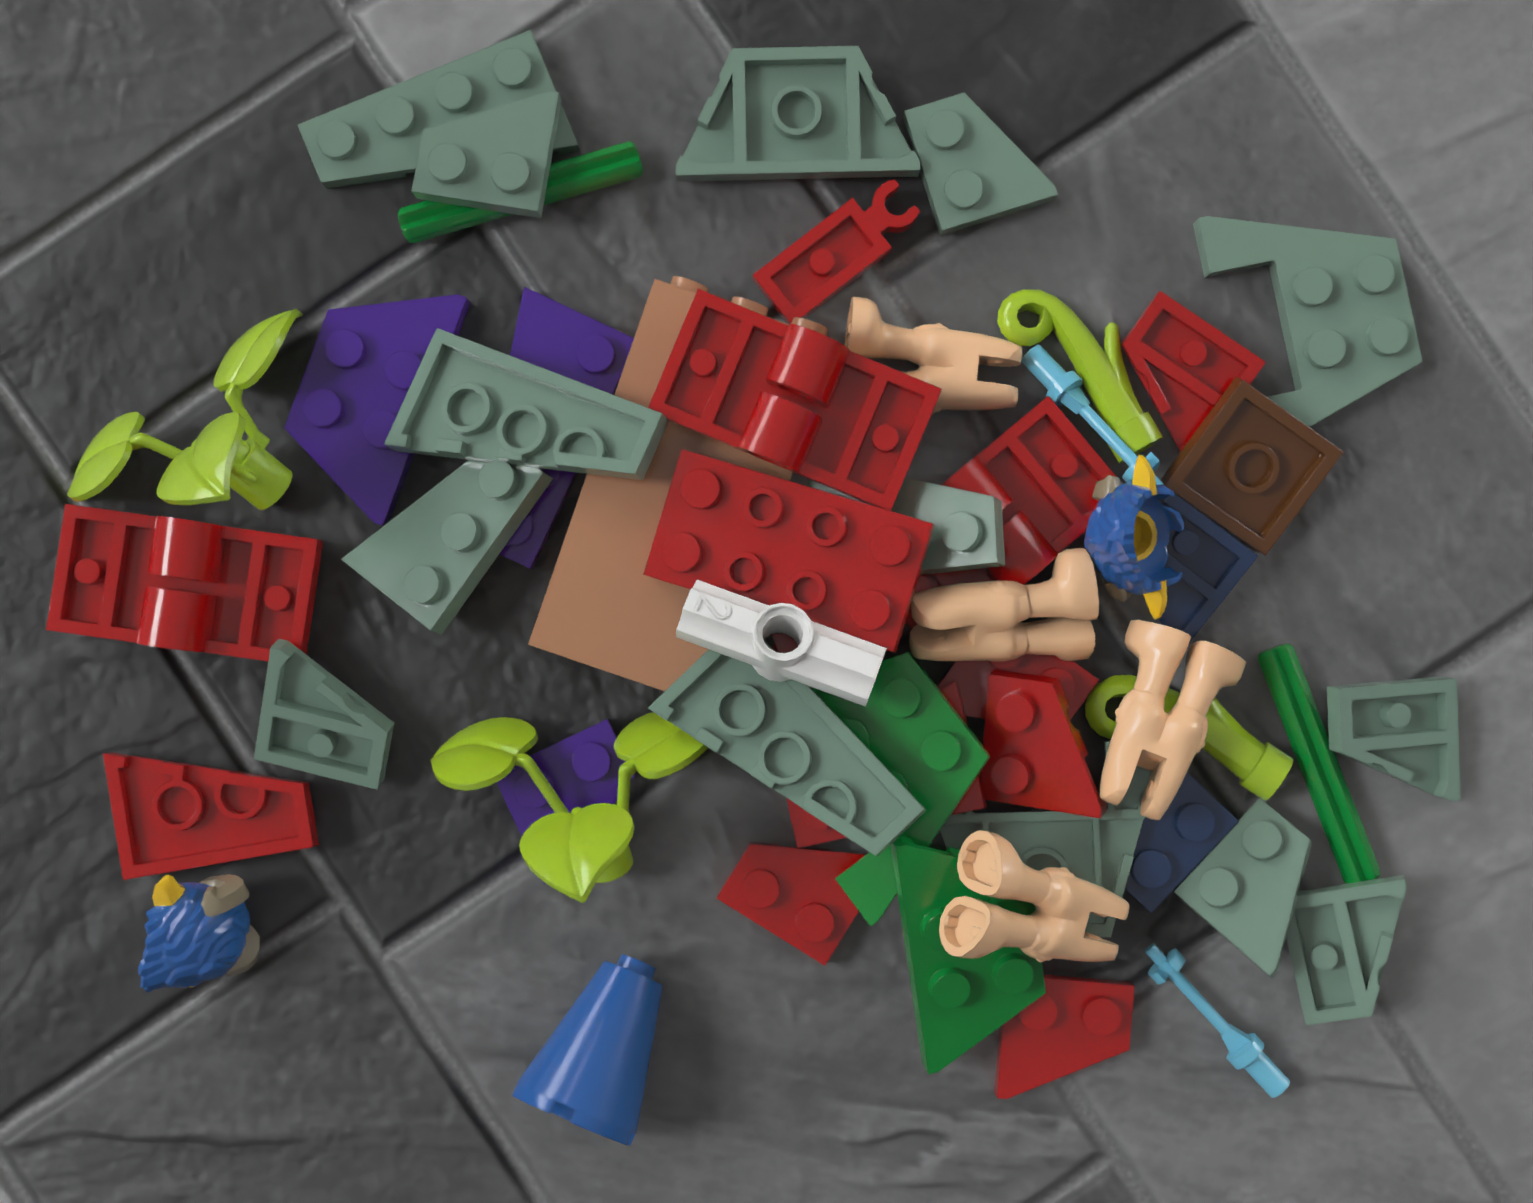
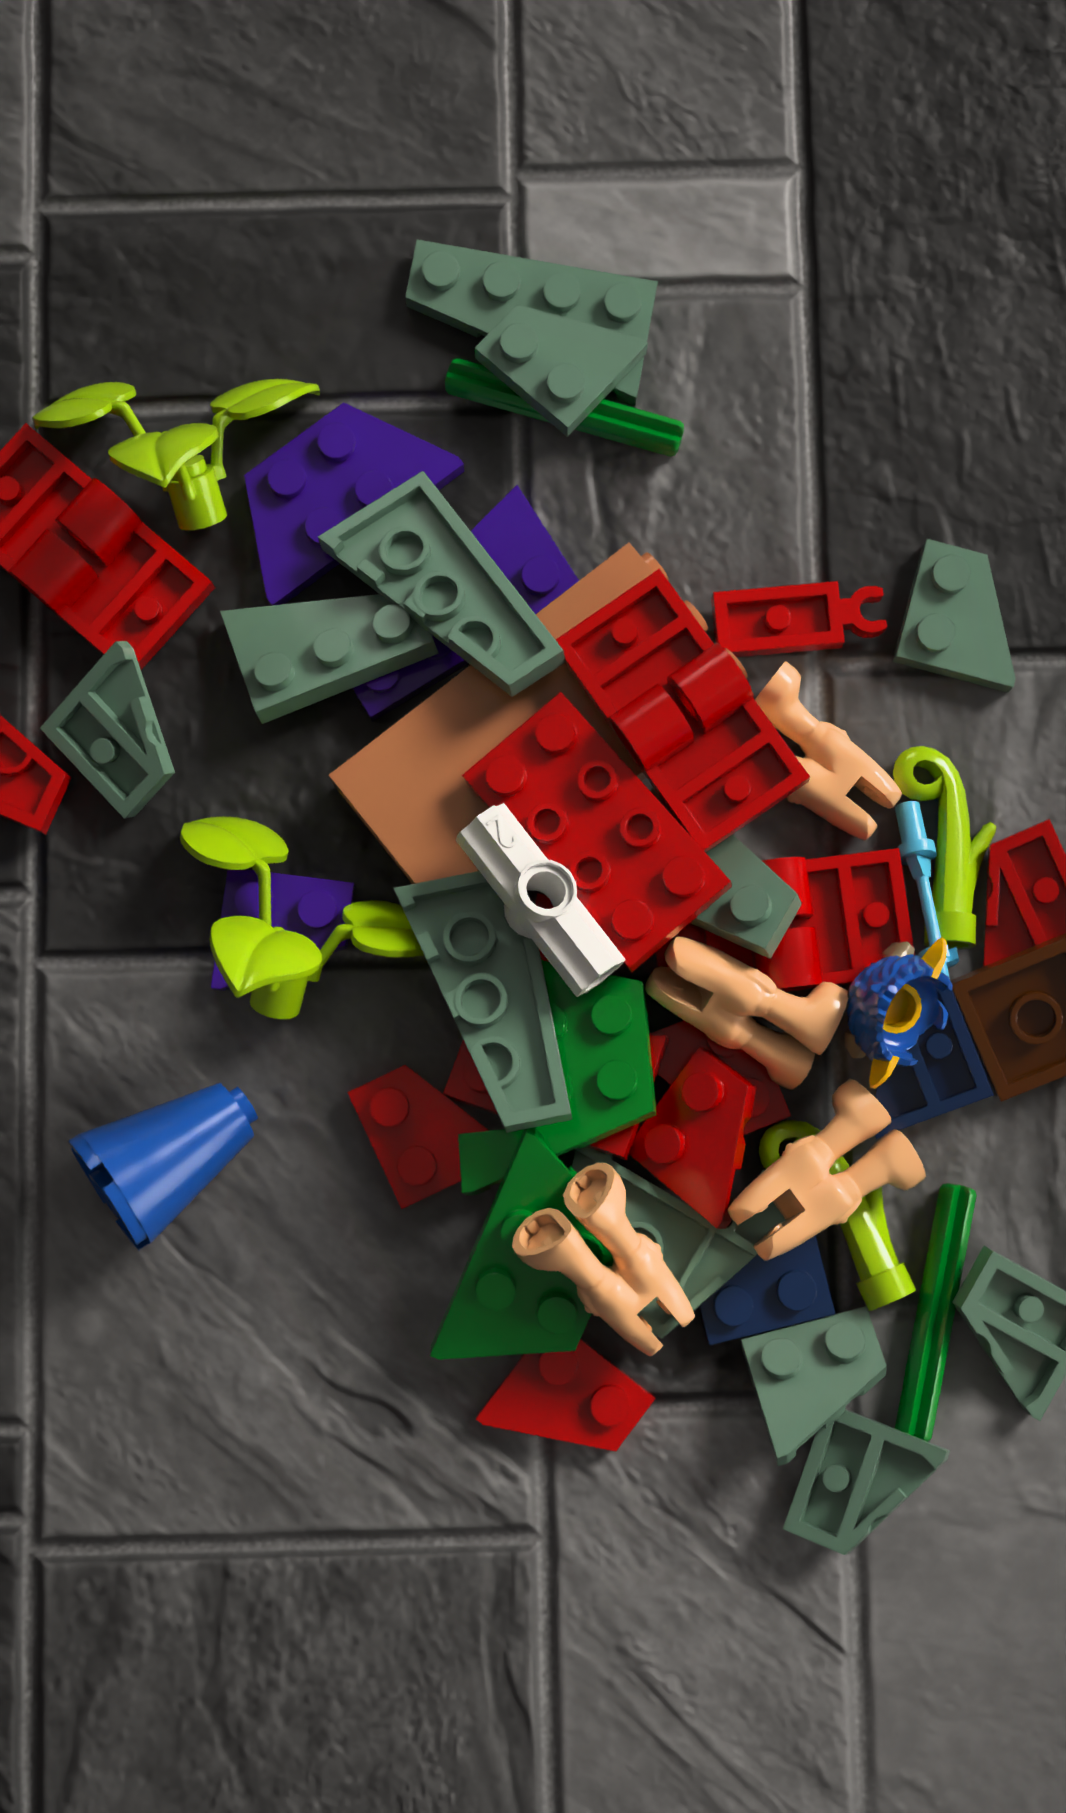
camera: 30 degrees right, 5 degrees down
(796, 119) = (831, 489): sand green wing -> none
(1243, 1048) = (715, 1515): medium azure piece -> none

